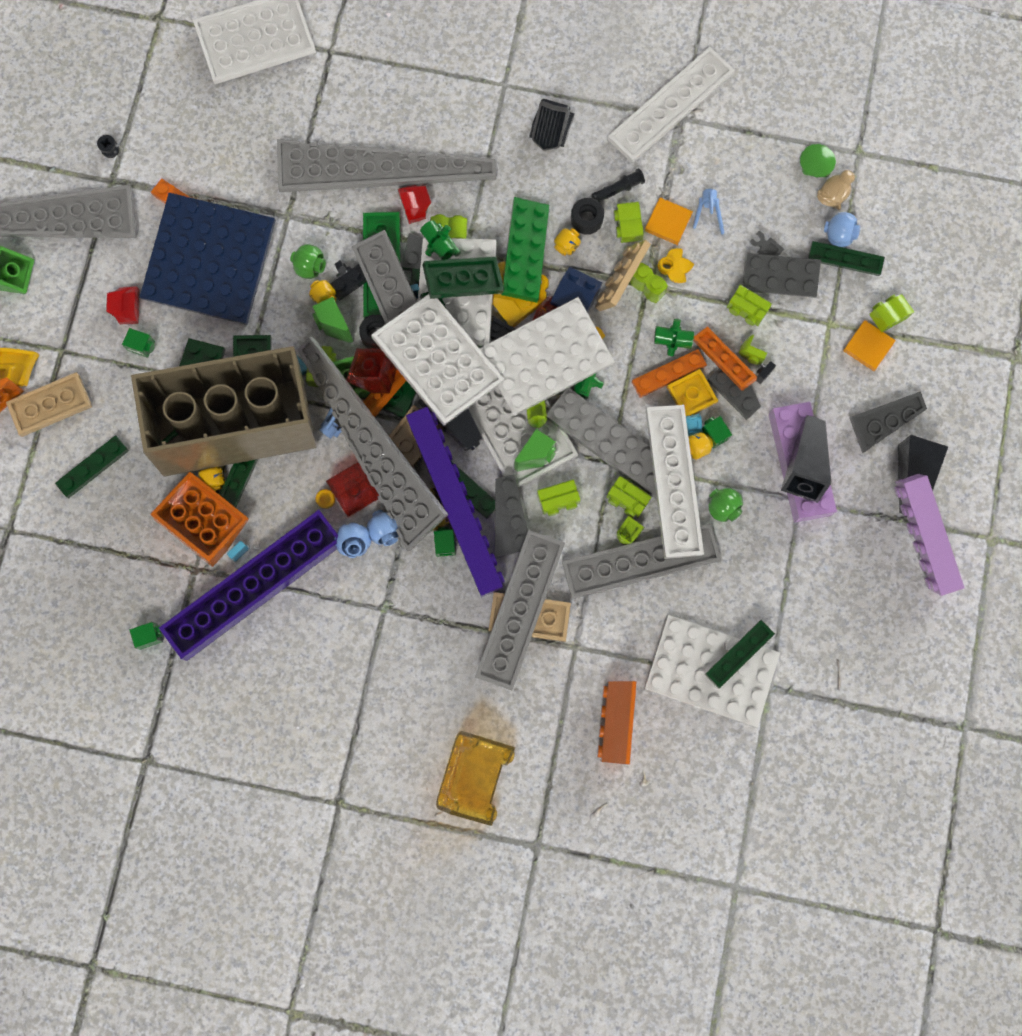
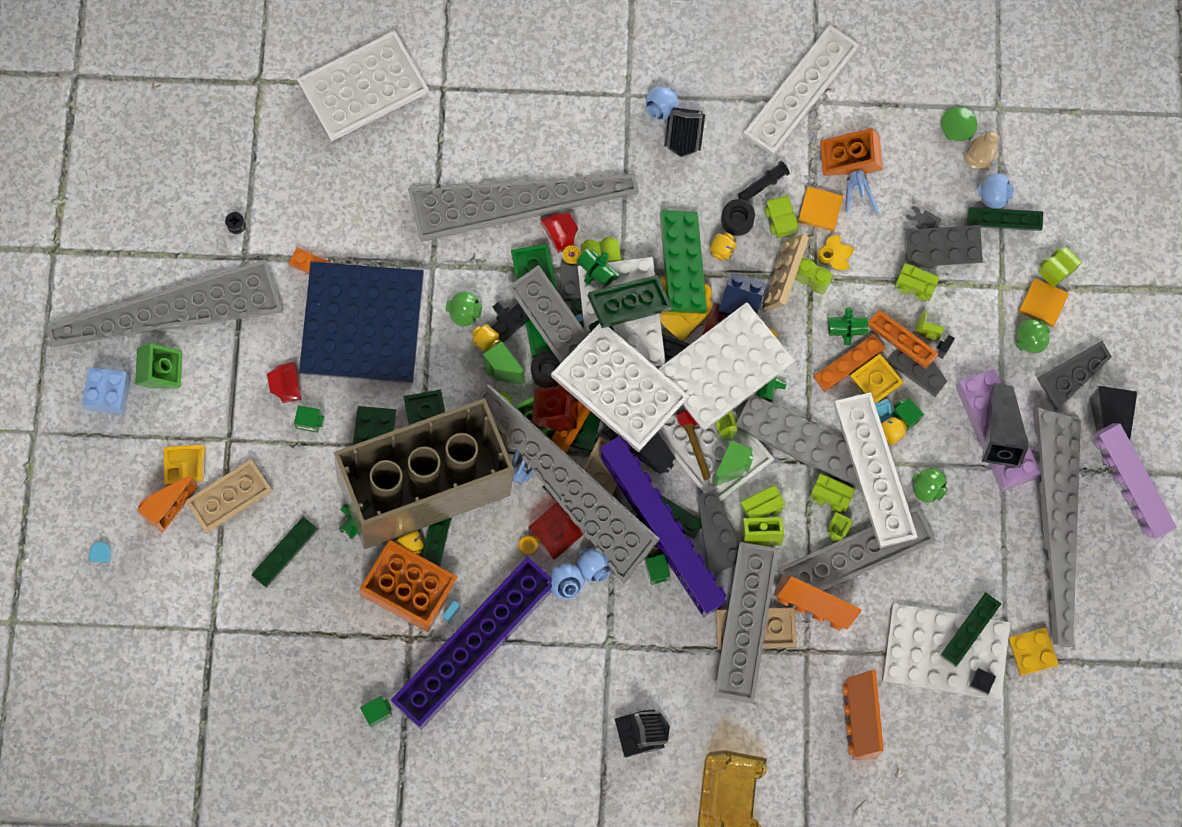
camera: 10 degrees left, 5 degrees down
(399, 699) = (642, 732): none -> black piece
(416, 226) = (571, 254): none -> yellow tile
(499, 404) = (687, 422): none -> pearl gold piece
(532, 93) = (660, 102): none -> light blue plant
(553, 523) = (763, 531): none -> lime brick
(591, 601) = (816, 602): none -> orange slope
(709, 171) = (852, 153): none -> orange slope
(742, 707) = (982, 681): none -> black plate
(797, 685) = (1033, 651): none -> yellow plate
(850, 541) = (1059, 505): none -> light grey wing
(852, 376) = (1032, 336): none -> bright green plant

